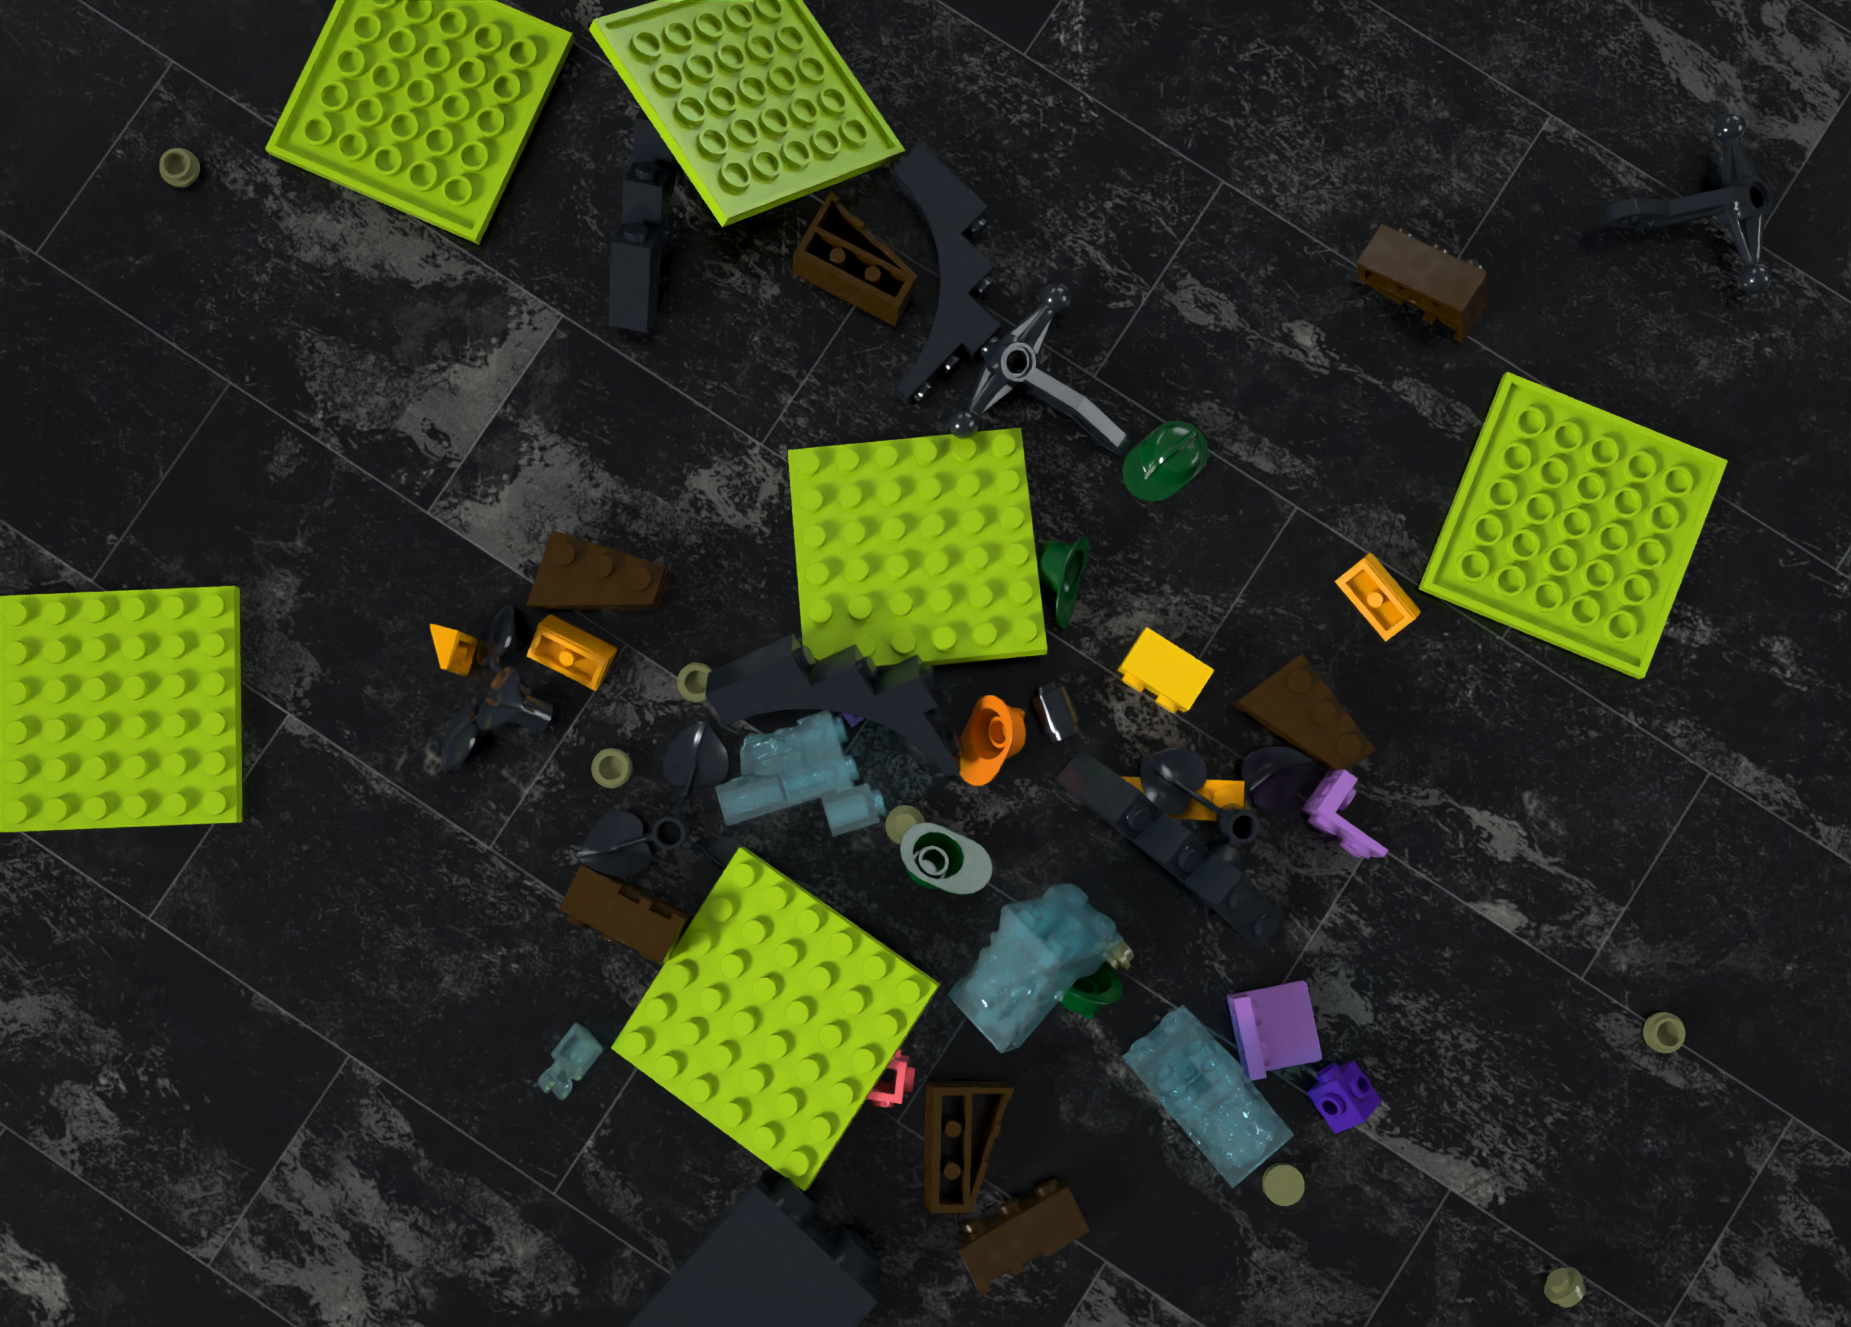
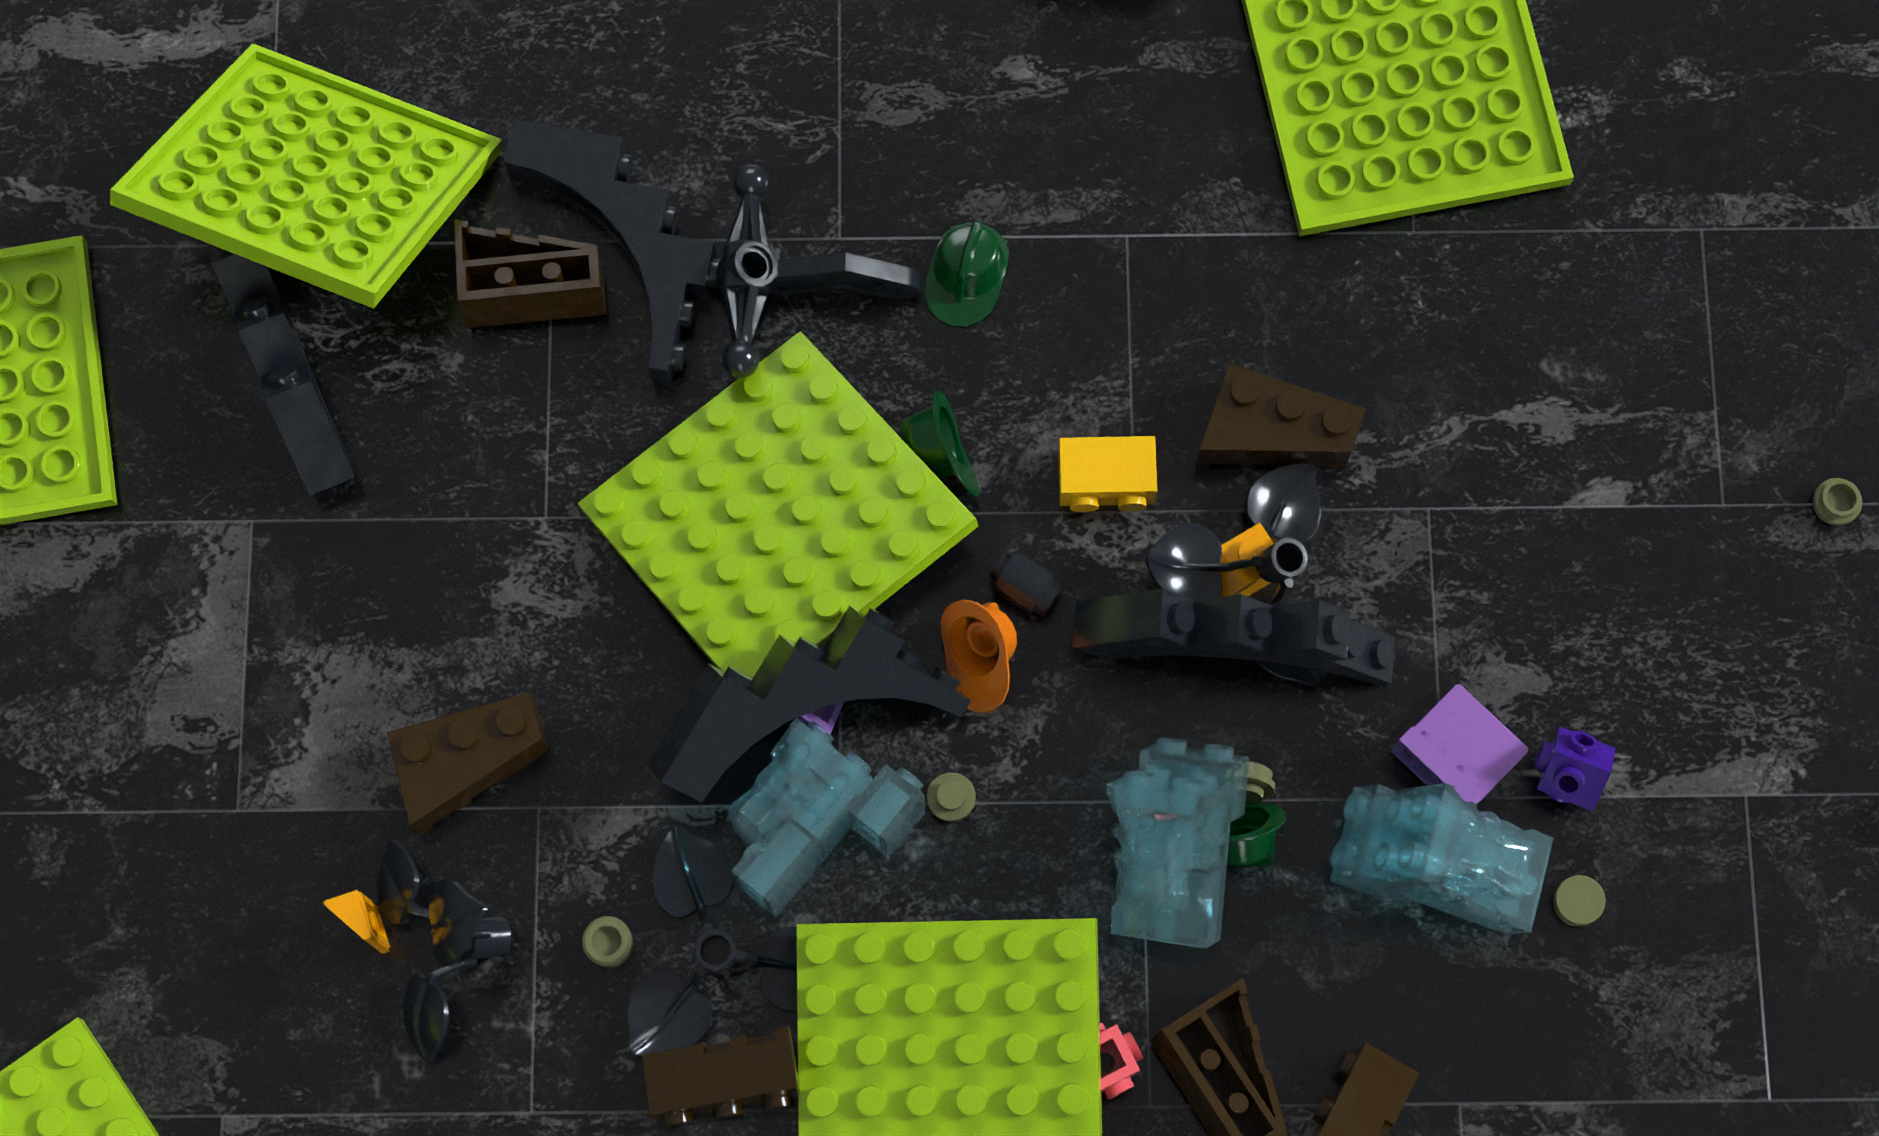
camera: 35 degrees left, 10 degrees down
(571, 652) = (487, 851): light orange slope -> none
(693, 682) = (639, 796): olive tile -> none
(944, 860) = (1013, 801): piece -> none
(1333, 793) = (1367, 507): medium lavender bracket -> none
(1378, 596) = (1265, 269): light orange slope -> none

